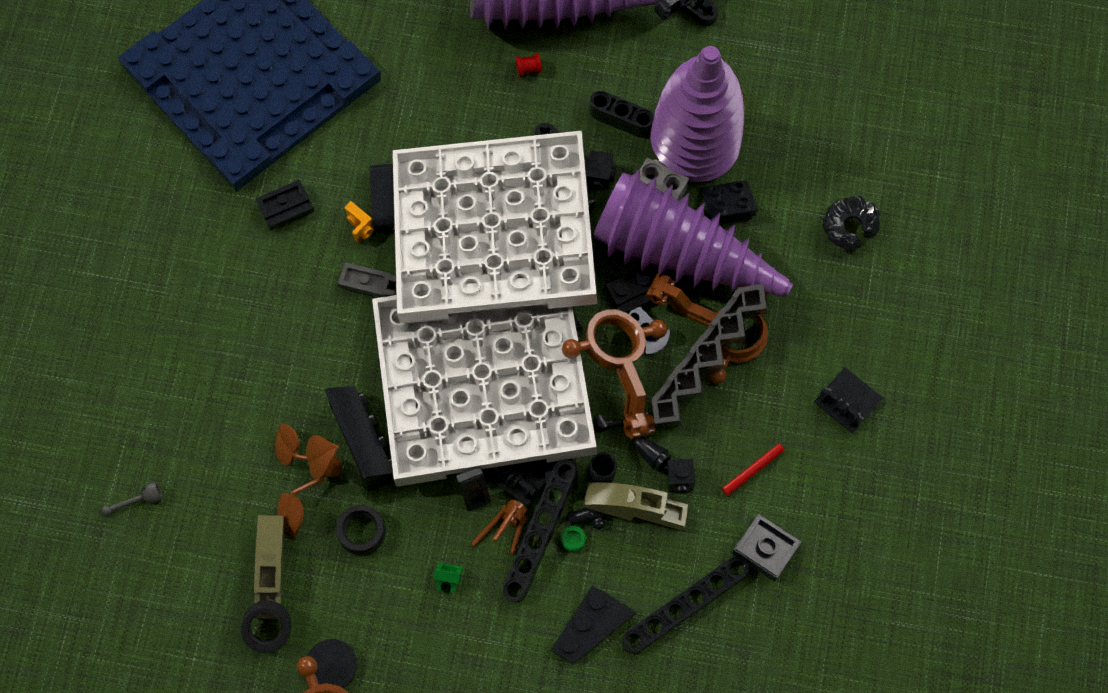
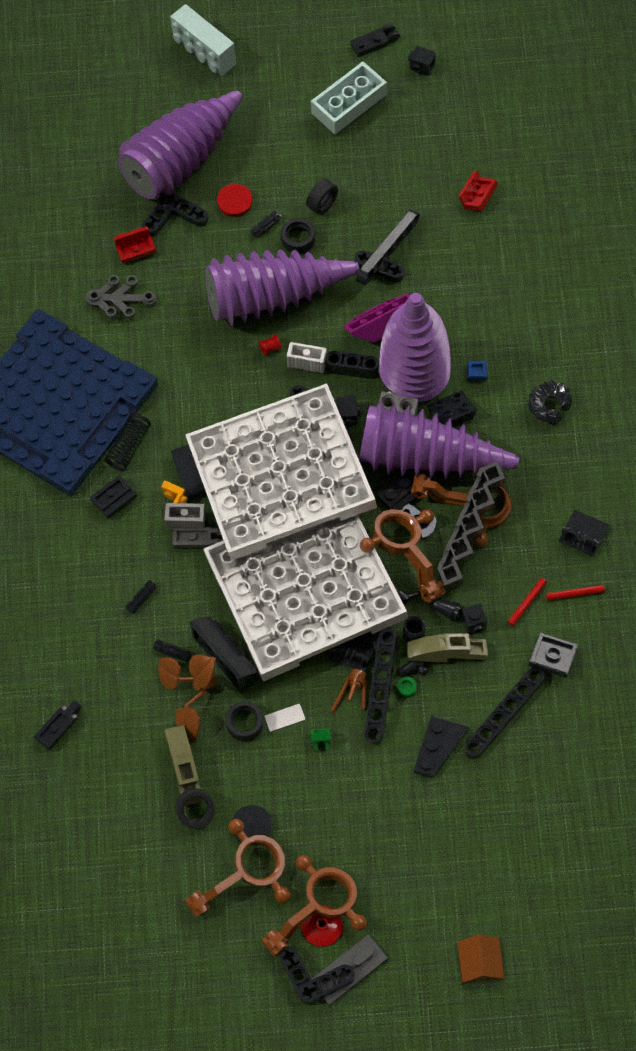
camera: 10 degrees left, 5 degrees down
(133, 474) = (57, 725): none -> black hinge
(151, 493) = (75, 736): dark grey hinge -> none
(281, 338) = (141, 596): none -> black axle
(299, 415) = (172, 650): none -> black axle
(307, 169) = (135, 423): none -> black piece
(362, 251) = (184, 515): none -> light grey brick
(412, 537) = (284, 717): none -> white sticker
(473, 489) = (322, 668): black tile -> none
(567, 91) = (306, 357): none -> white brick
(656, 68) = (372, 323): none -> magenta wedge
(772, 160) = (477, 370): none -> blue tile
(816, 473) = (575, 592): none -> red bar

